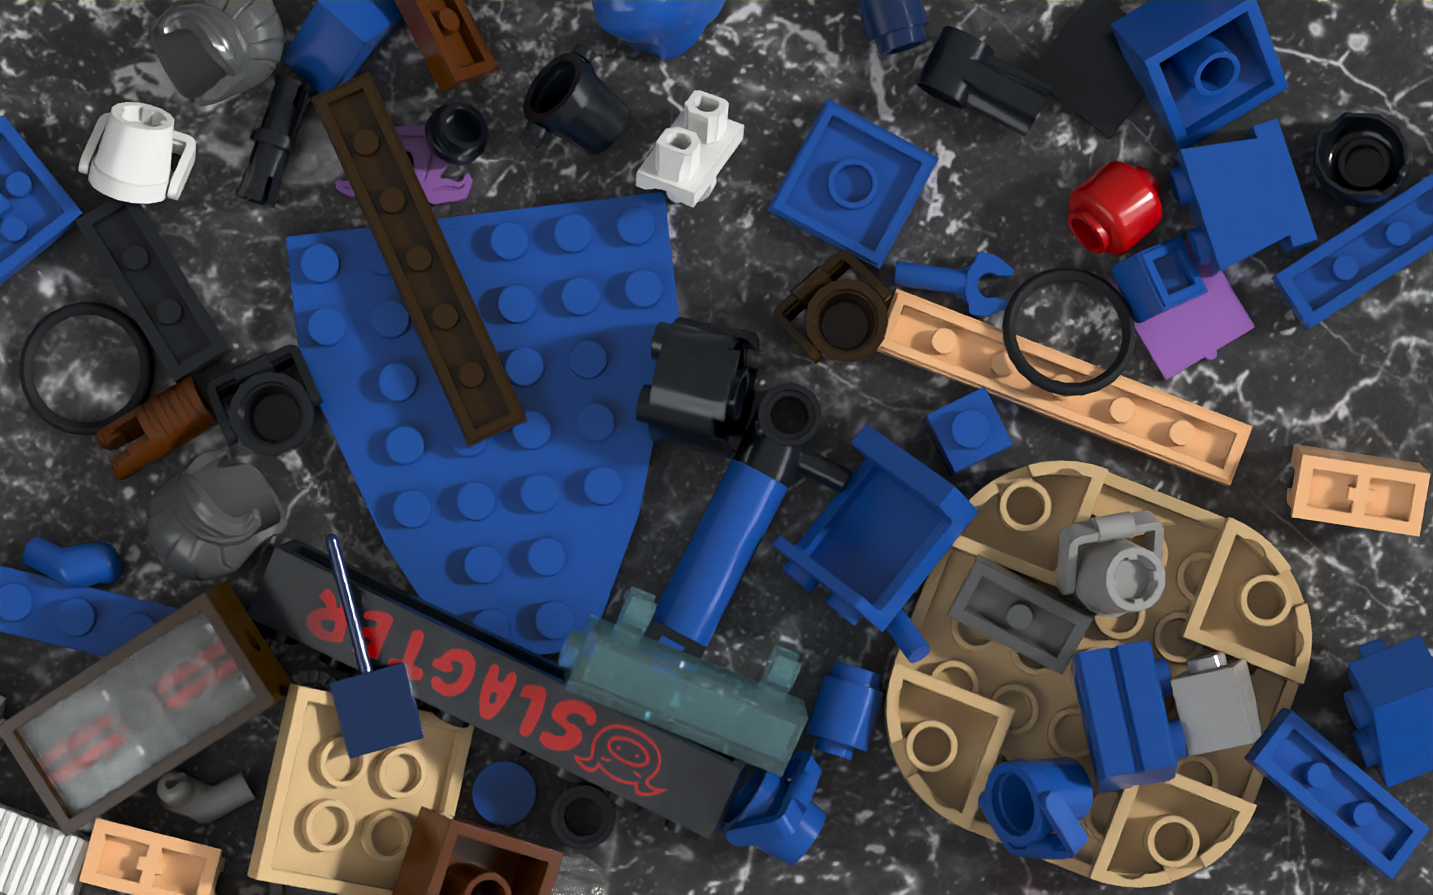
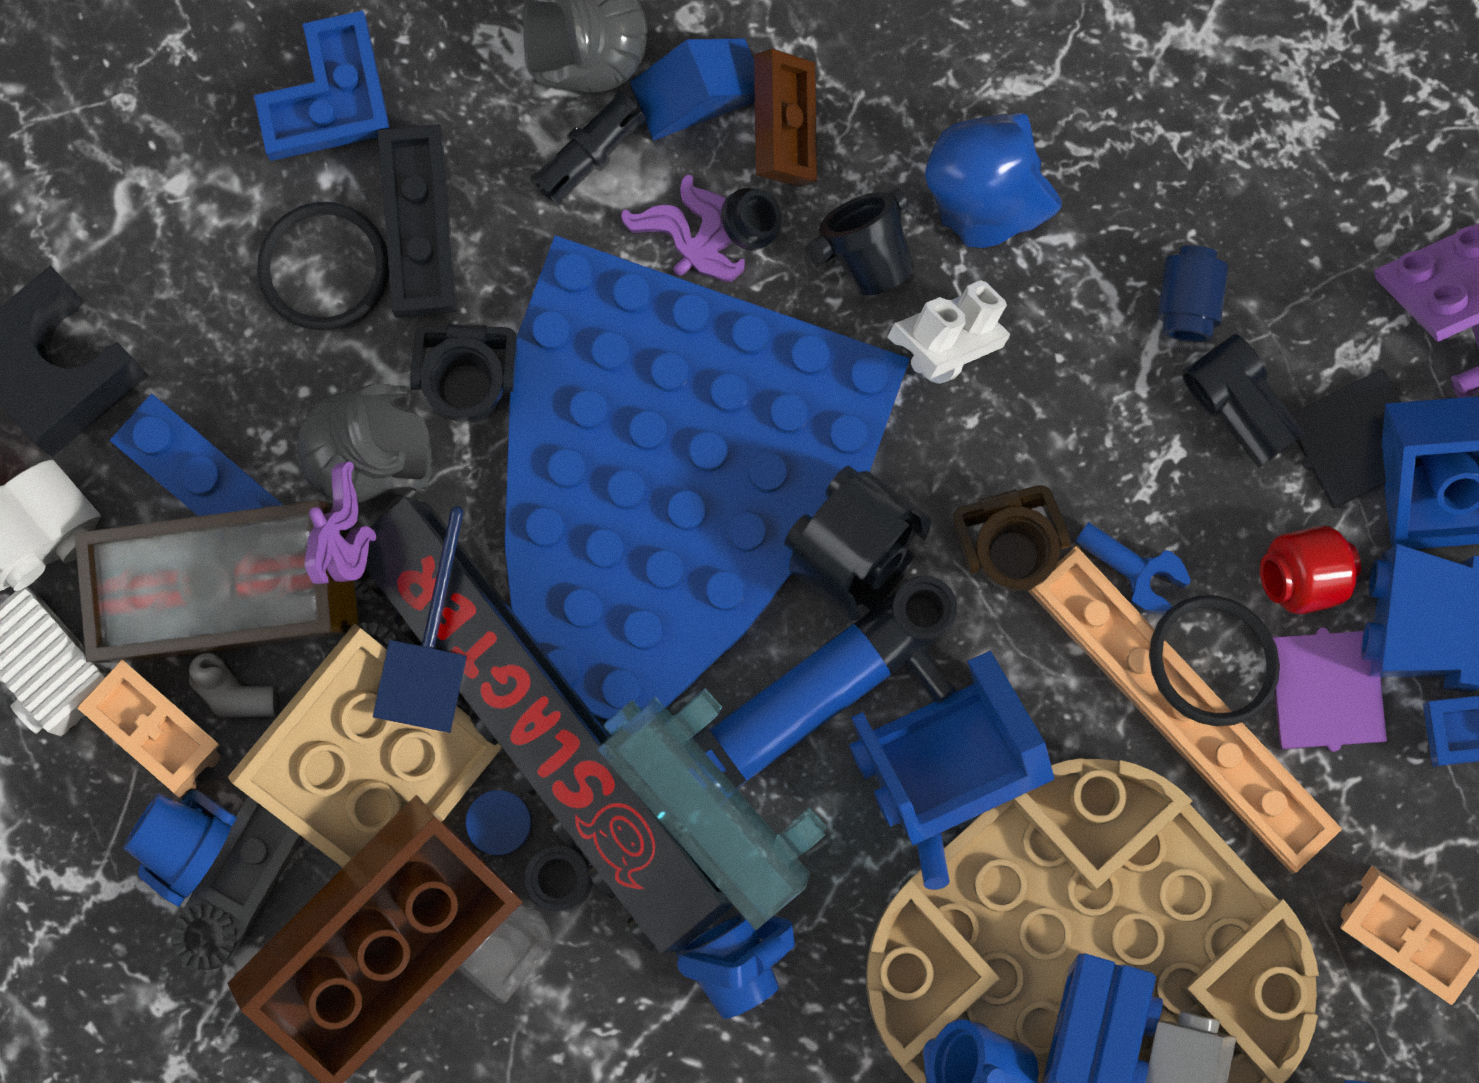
camera: 30 degrees right, 5 degrees down
(74, 565) = (223, 429): blue arm -> none
(133, 154) = (459, 96): white piece -> none
(167, 421) = (356, 345): reddish brown hinge -> none
(234, 630) = (326, 548): none -> medium lavender piece
(419, 259) = (662, 311): dark brown tile -> none
(846, 710) = (844, 902): blue brick -> none
(852, 184) = (1081, 435): blue tile -> none
(967, 431) = (1078, 704): blue brick -> none
(1020, 614) = (1047, 893): dark grey plate -> none
(1107, 568) = (1148, 892): light grey piece -> none
(1158, 279) = (1319, 654): blue slope -> none

